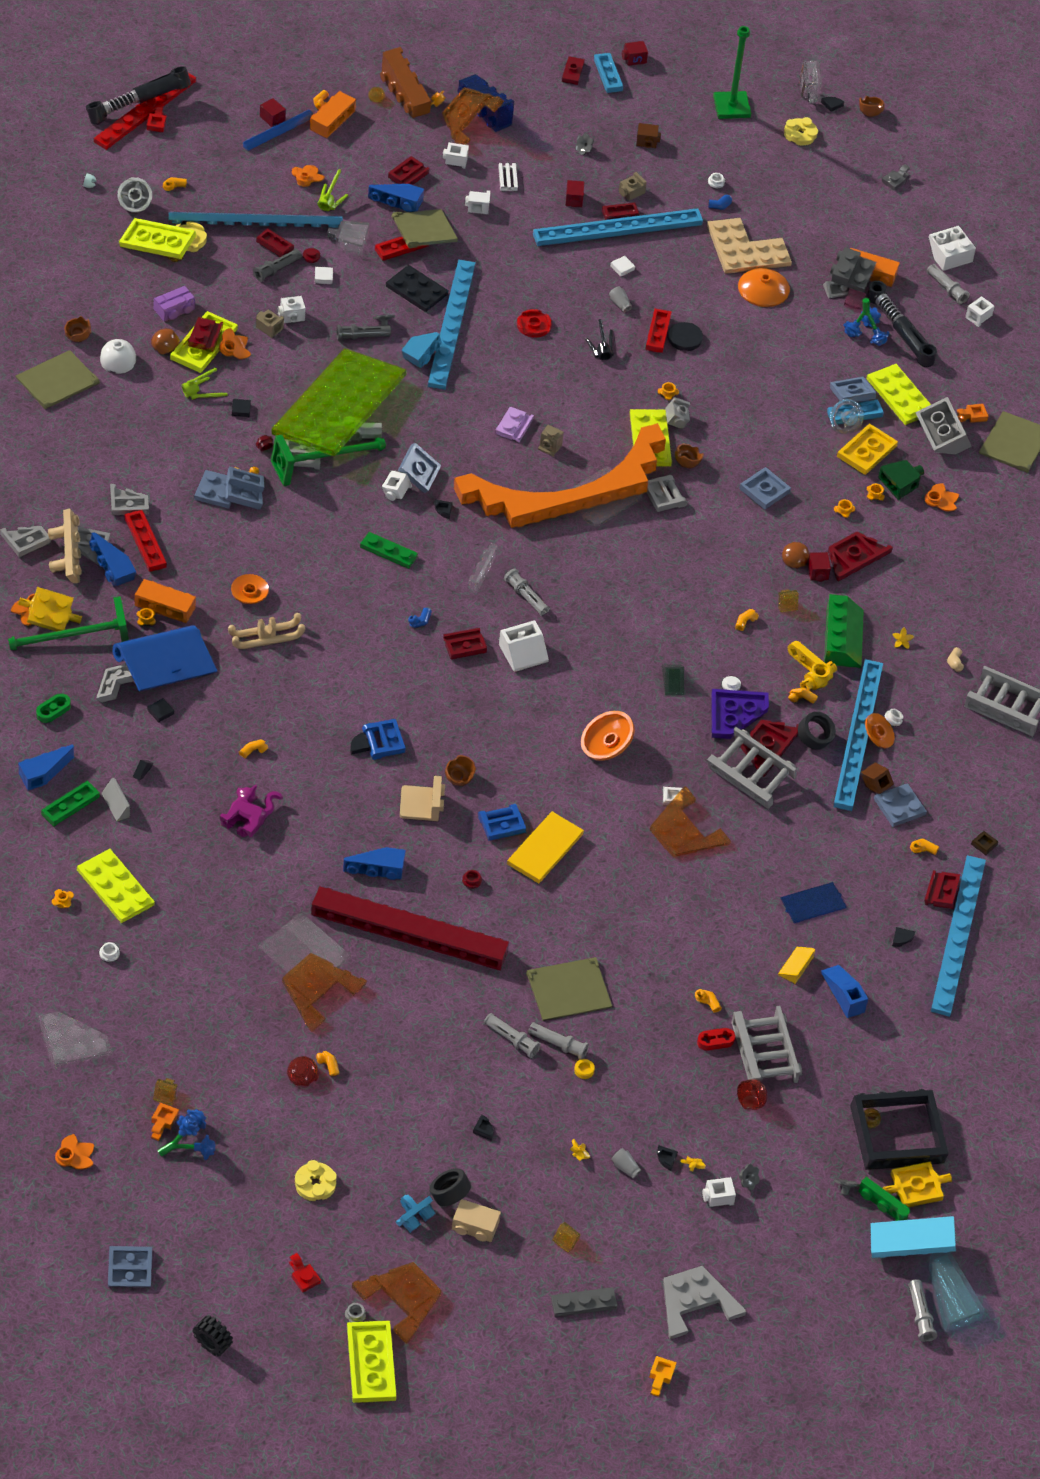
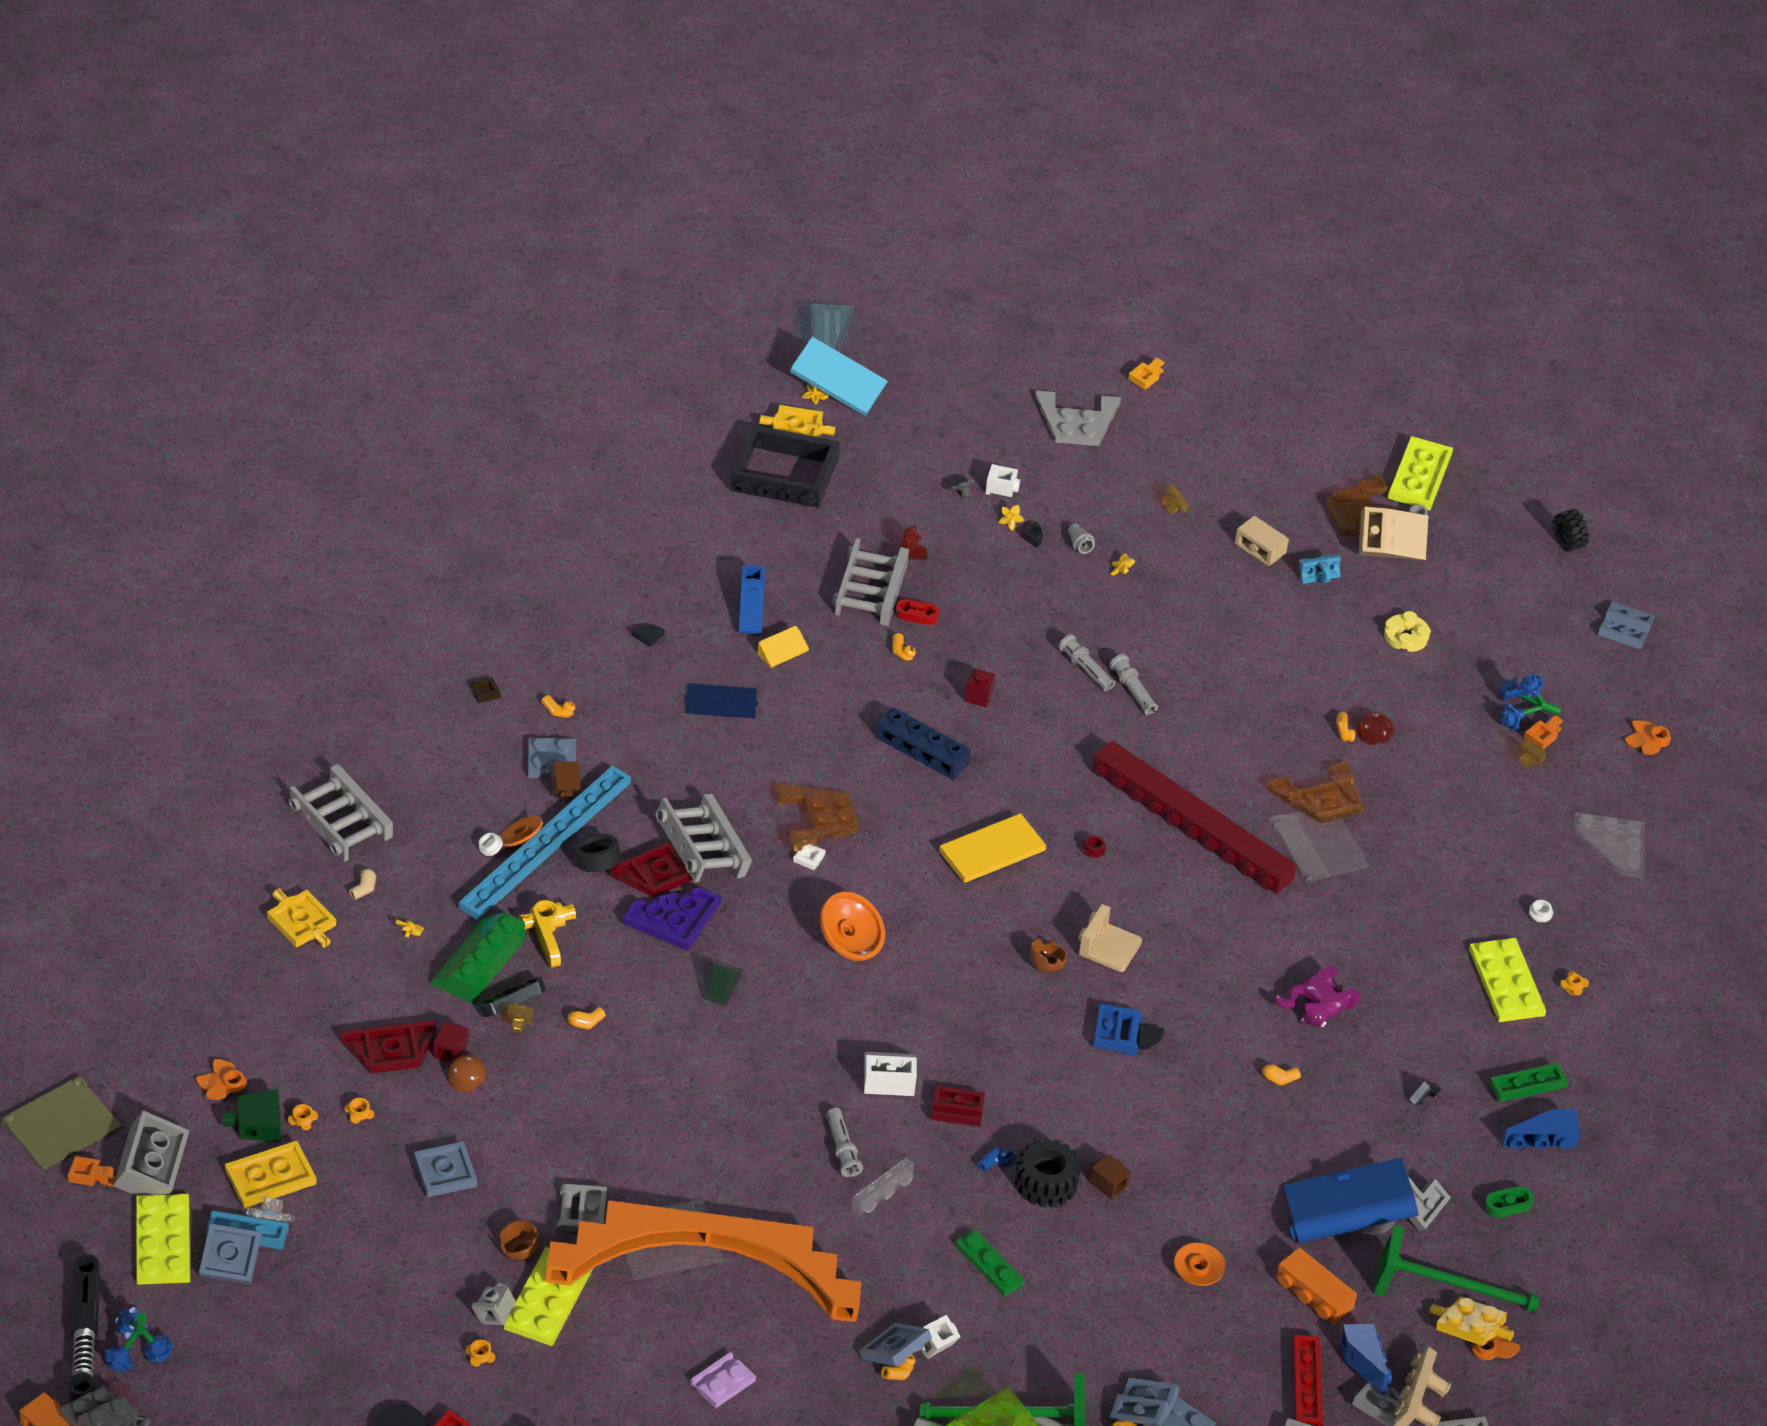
camera: 155 degrees left, 5 degrees down
(116, 800) = (1471, 1067): light grey slope -> none
(146, 612) = (1350, 1275): light orange plate -> none
(160, 710) = (1373, 1155): black tile -> none
(267, 633) = (1202, 1205): tan piece -> none
(304, 1276) = (1454, 560): red plate -> none
(338, 627) = (1109, 1176): none -> reddish brown brick
(368, 1260) = (1393, 534): none -> tan slope
(380, 622) = (1043, 1187): none -> black tyre
(380, 862) = (1194, 893): blue slope -> none
(444, 508) = (885, 1295): black tile -> none
(450, 1187) = (1261, 570): black tyre -> none
(484, 1128) = (1208, 620): black tile -> none
(502, 826) = (1027, 886): blue plate -> none
(551, 440) = (695, 1324): dark tan brick -> none
(569, 988) = (1045, 711): olive piece -> none
(583, 1302) = (1187, 452): dark grey plate -> none
(584, 1069) = (1074, 629): yellow tile -> none
(627, 977) = (980, 687): none -> dark red brick
(643, 913) = (923, 743): none -> dark blue brick
(731, 683) = (657, 949): white plate -> none
(804, 693) = (582, 906): light orange arm -> none
(809, 610) = (513, 995): none -> black beam
(846, 1185) = (867, 448): dark grey plant -> none
(883, 1200) = (841, 421): green plate -> none
(923, 1318) = (868, 329): light grey pin -> none
(943, 889) = (571, 658): dark red plate -> none
(958, 936) = (584, 617): dark azure plate -> none
(976, 618) = (301, 918): none -> yellow plate

